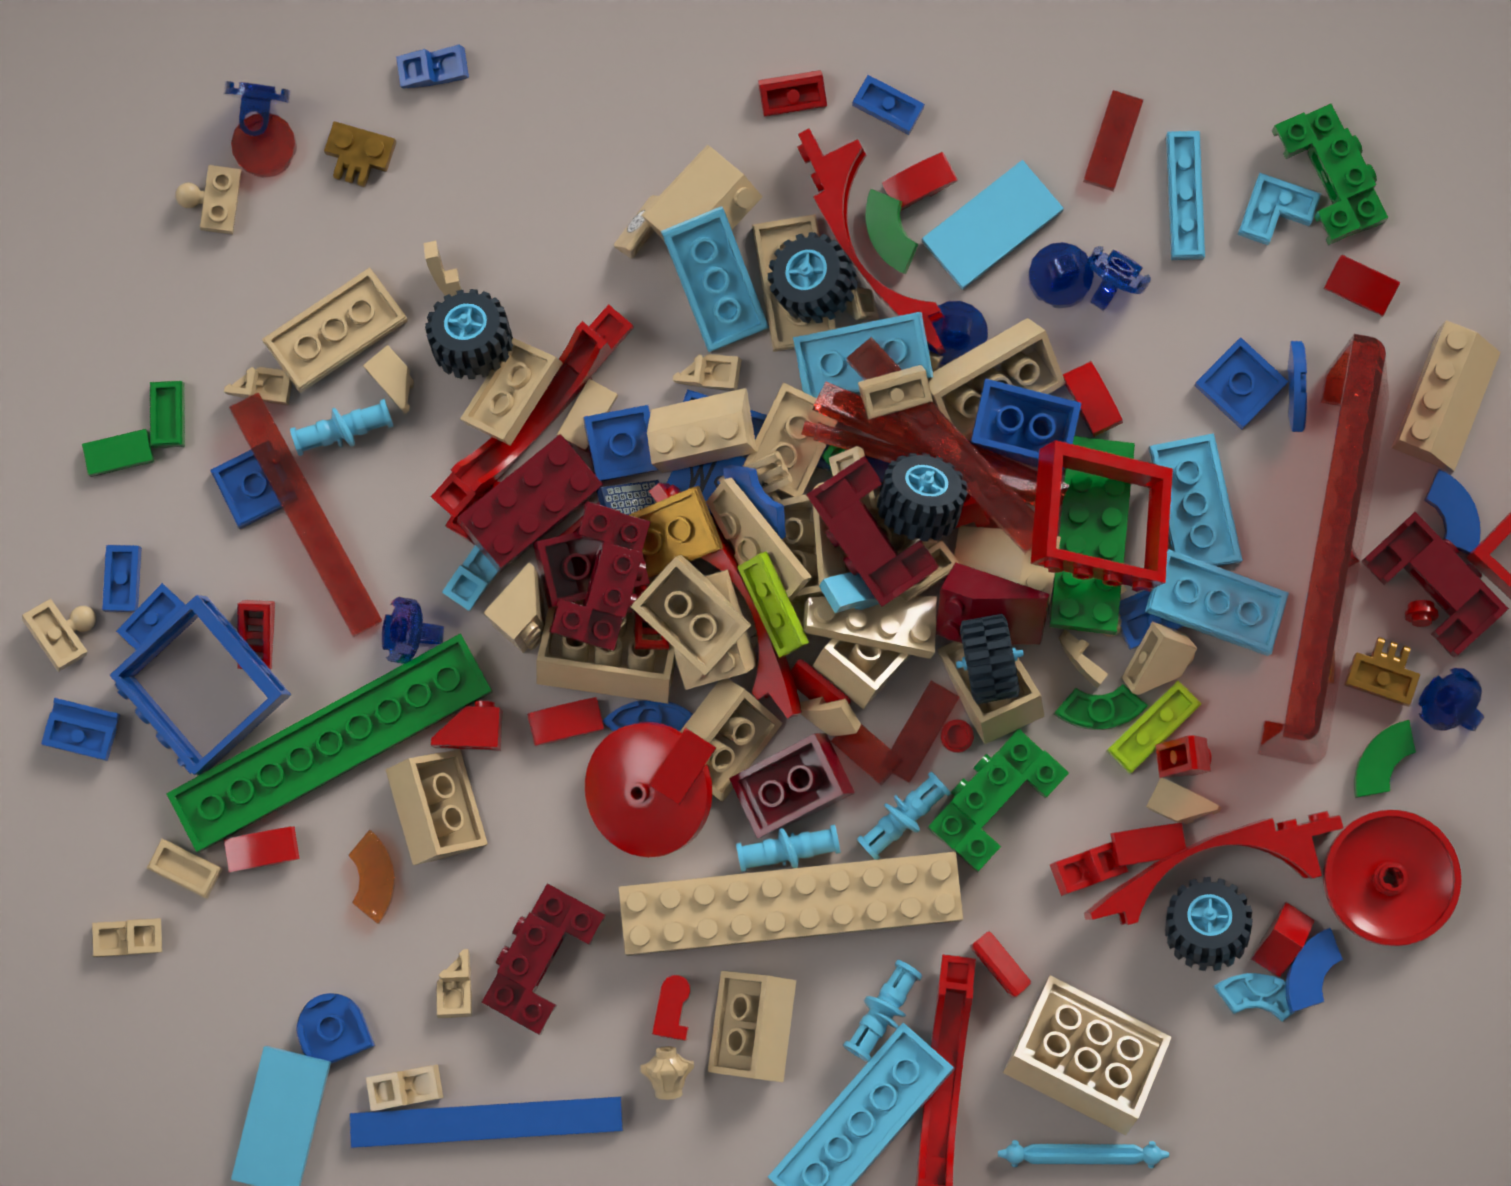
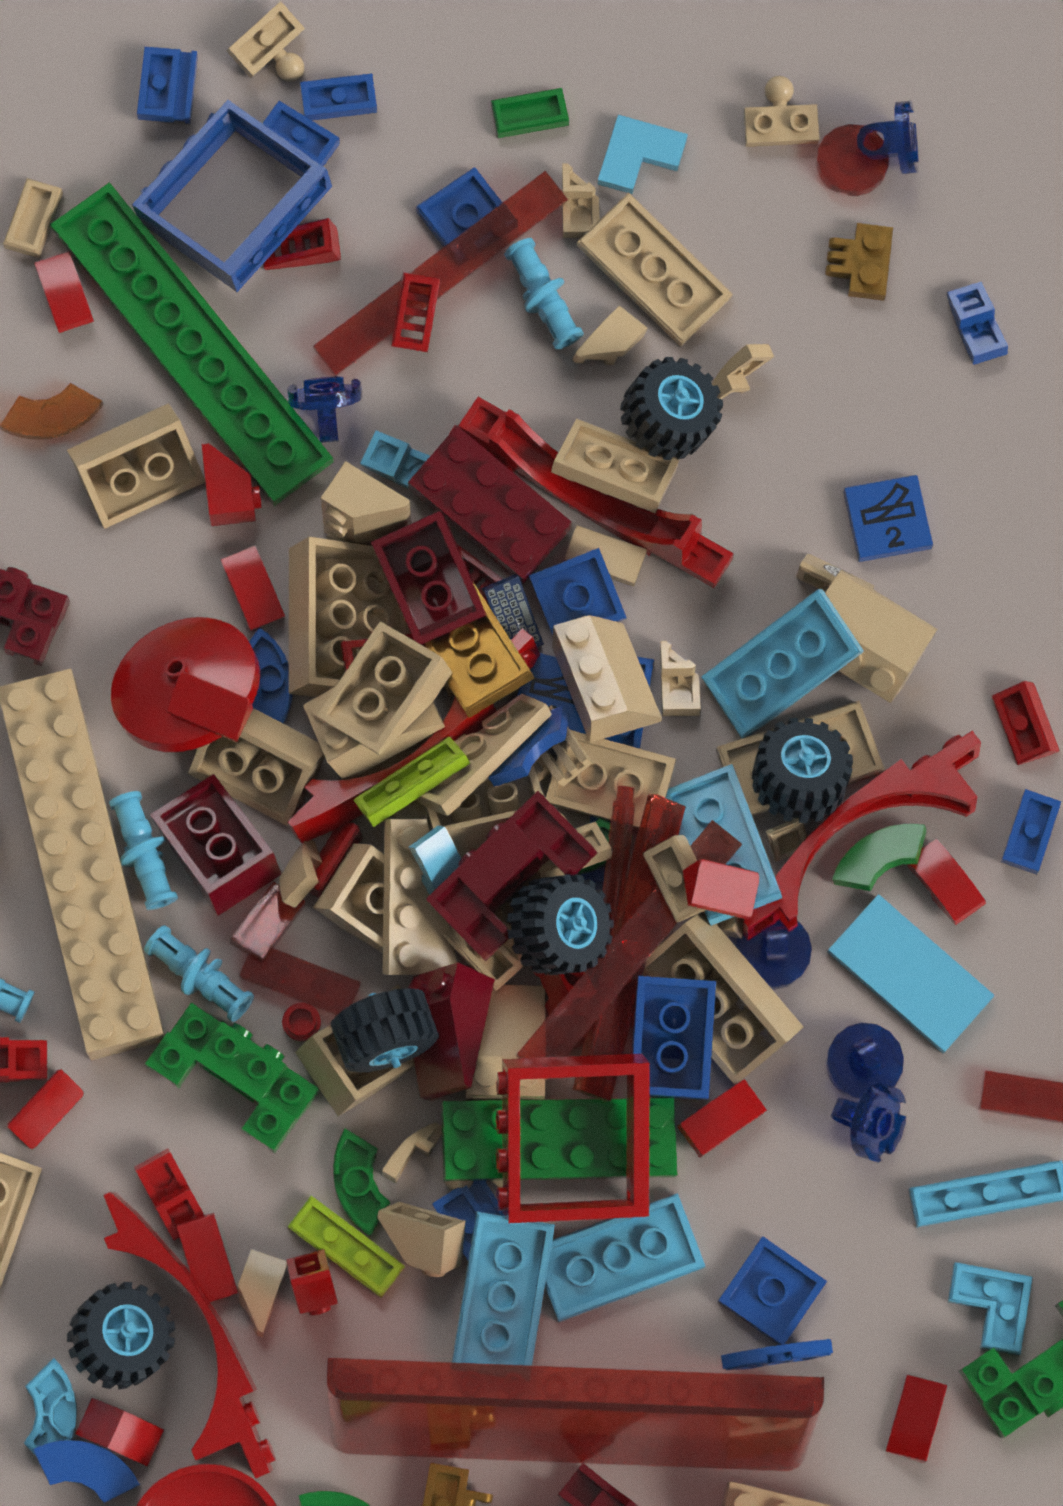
camera: 70 degrees right, 5 degrees down
(118, 452) = (478, 69): green tile -> none
(214, 326) = (638, 143): none -> medium azure tile
(342, 529) = (431, 299): none -> red slope
(594, 173) = (888, 518): none -> blue tile
(611, 581) = (406, 598): dark red bracket -> none
(913, 357) = (721, 888): none -> slope

